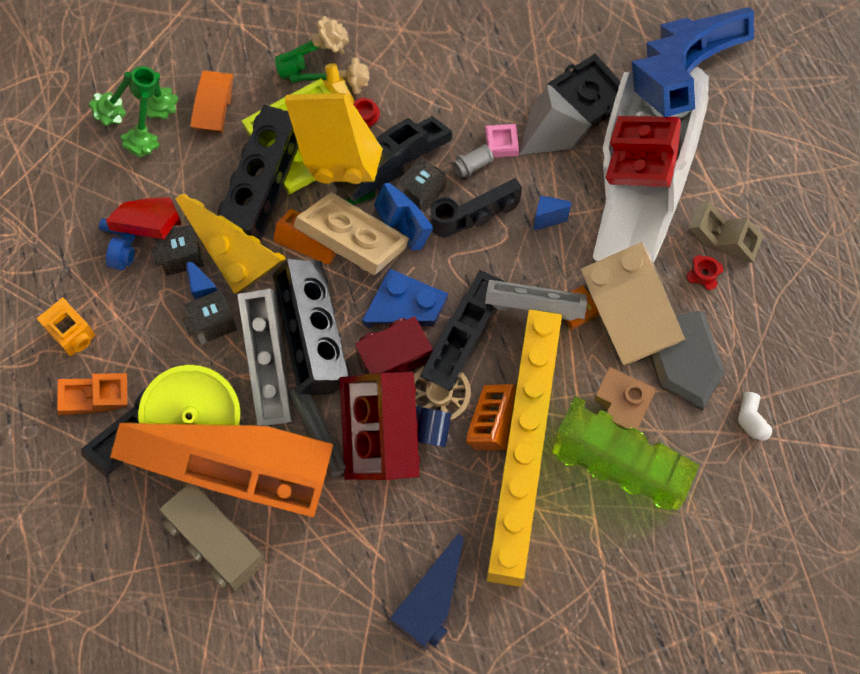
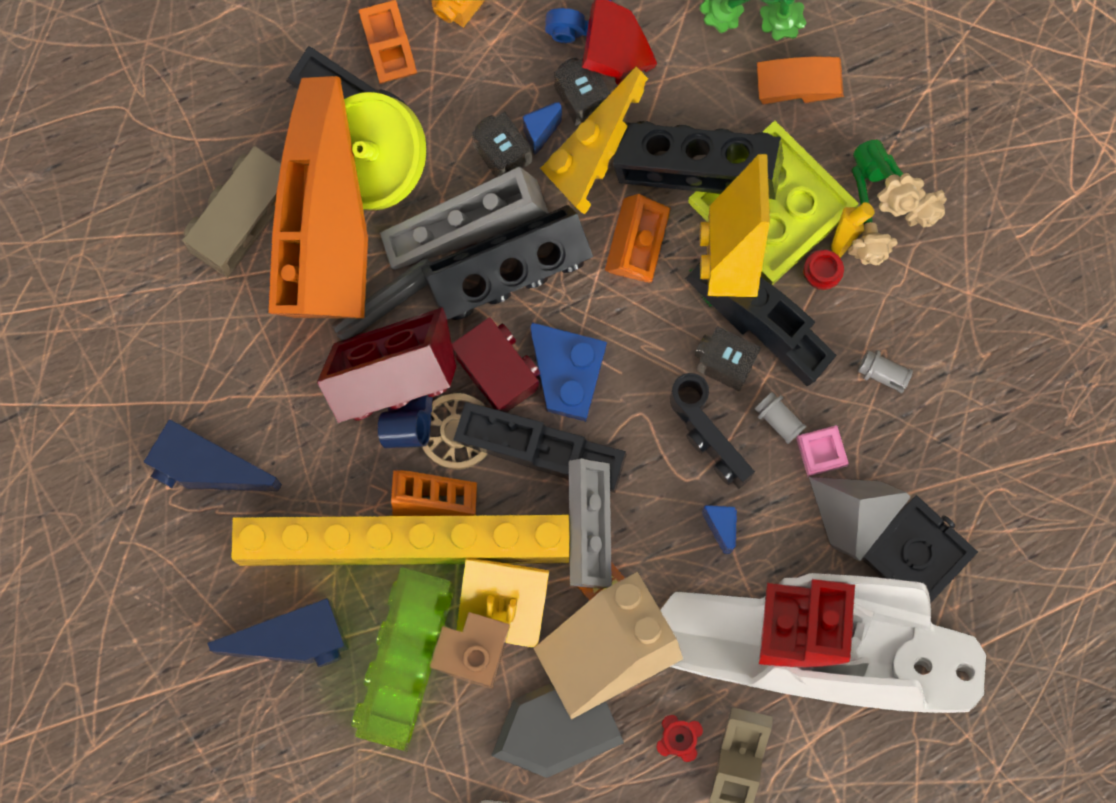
camera: 80 degrees right, 10 degrees up
(351, 233) = (640, 285): tan plate -> none
(401, 212) = (685, 338): blue slope -> none
(446, 93) = (884, 371): none -> light grey pin
(582, 372) = (507, 595): none -> yellow piece
(592, 541) = (298, 636): none -> dark blue slope
(664, 75) = (979, 653): blue arch -> none

